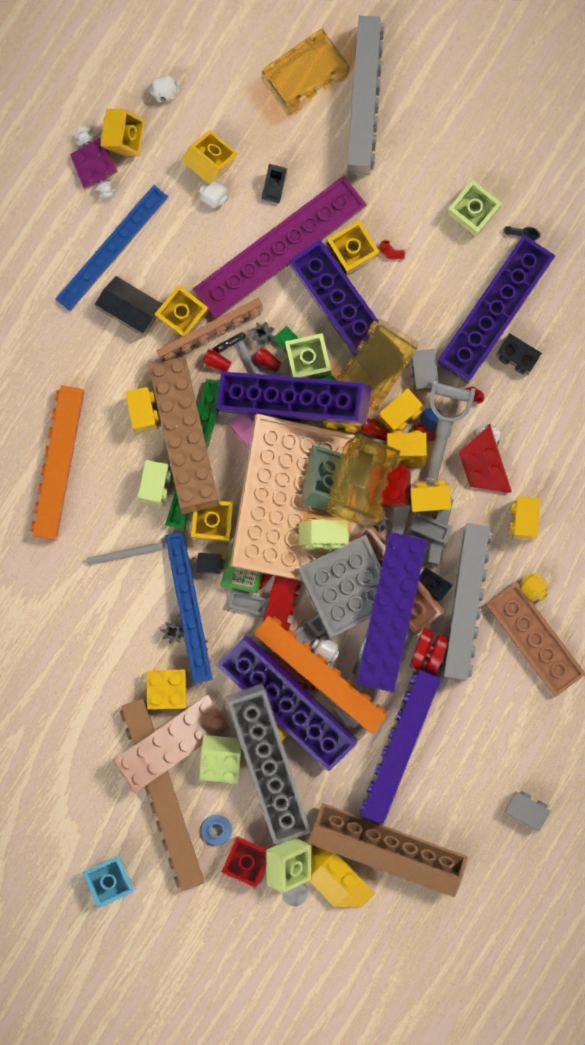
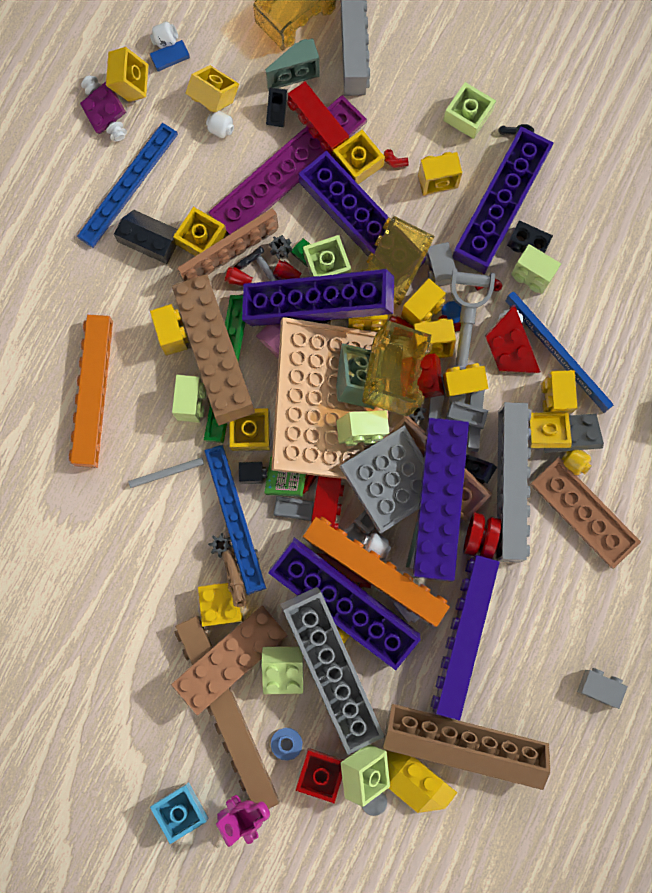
camera: 10 degrees left, 5 degrees down
(168, 110) = (170, 55): none -> blue tile
(168, 893) = (241, 820): none -> dark pink piece
(183, 673) = (235, 584): none -> medium nougat pin
(301, 138) = (294, 65): none -> sand green slope
(315, 201) = (316, 117): none -> red brick
(434, 273) = (440, 173): none -> yellow brick
(509, 554) = (550, 430): none -> yellow plate
(518, 387) = (535, 269): none -> yellowish green brick
(531, 558) = (584, 434): none -> dark grey plate
(532, 474) = (560, 353): none -> blue tile

